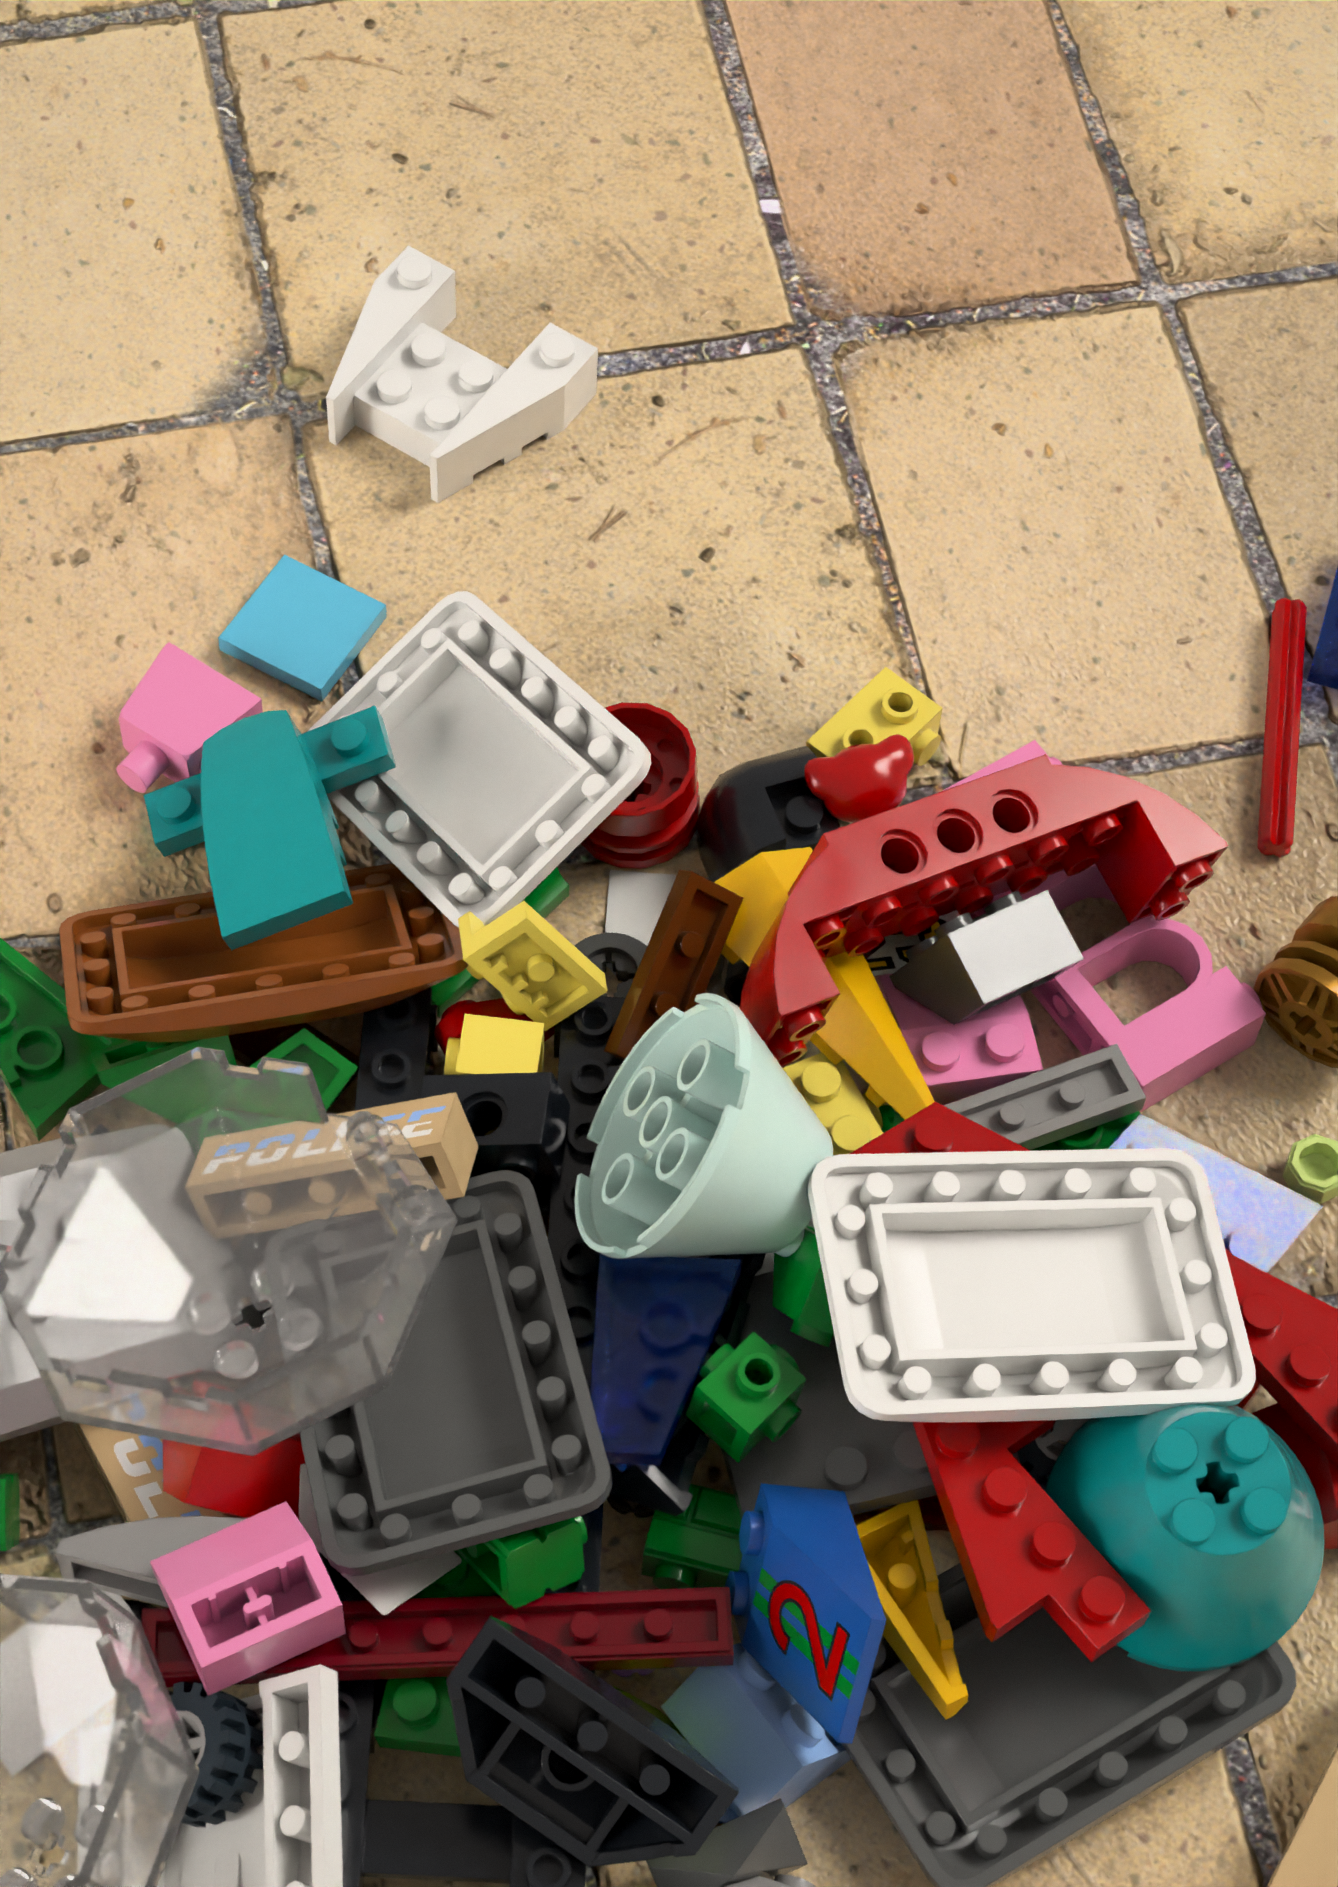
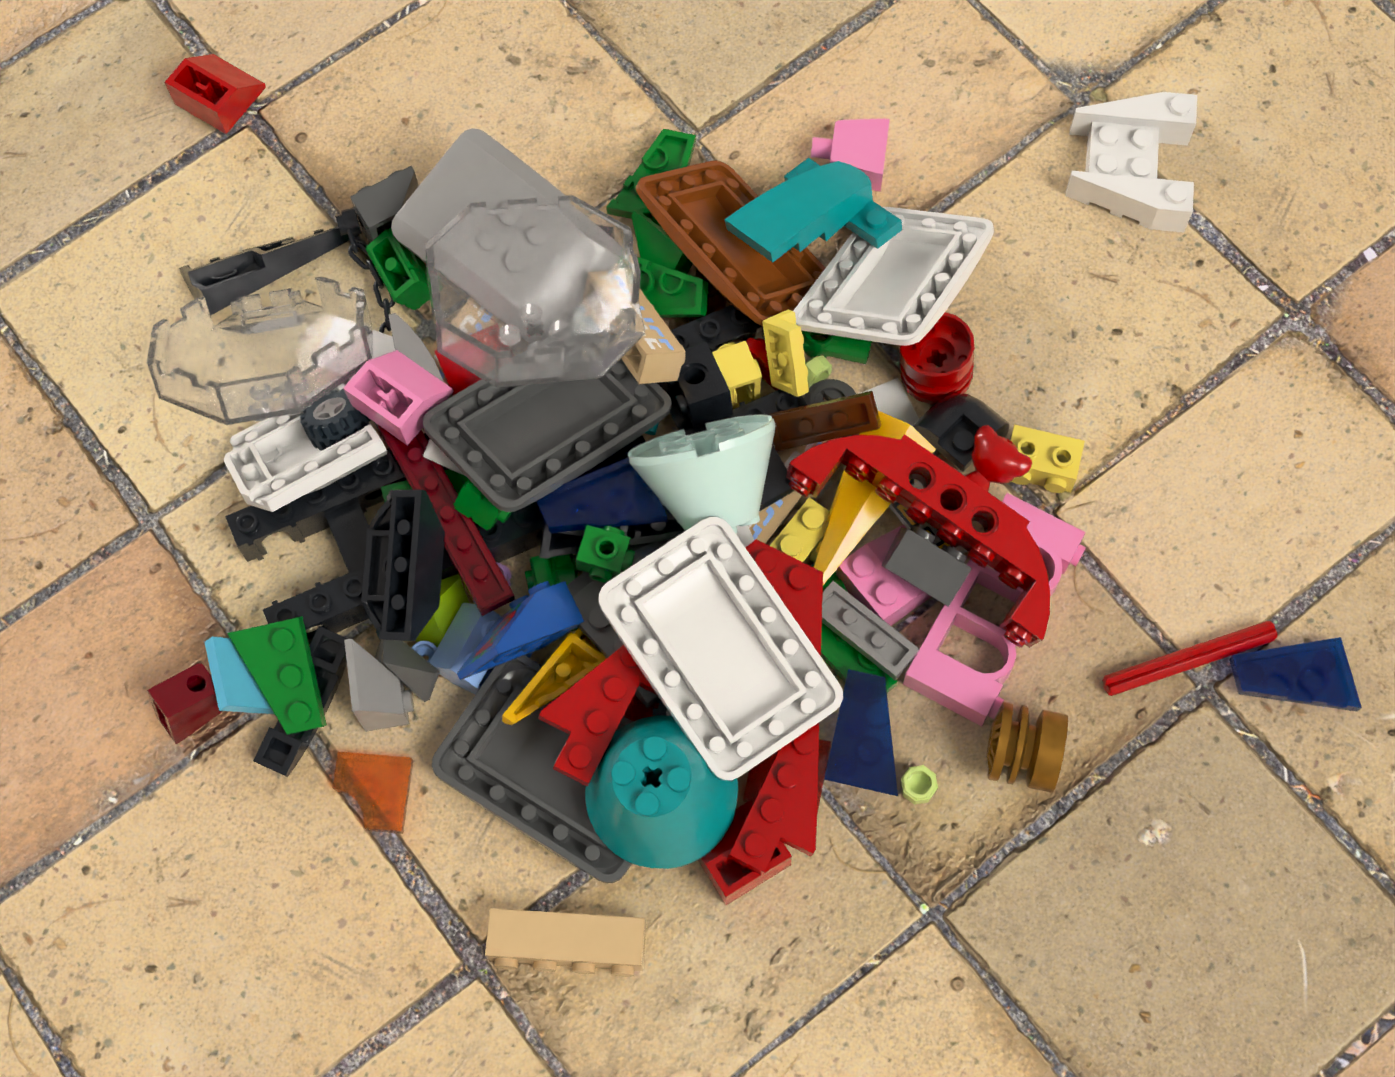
camera: 70 degrees right, 10 degrees up
(302, 627) = (948, 174): medium azure tile -> none

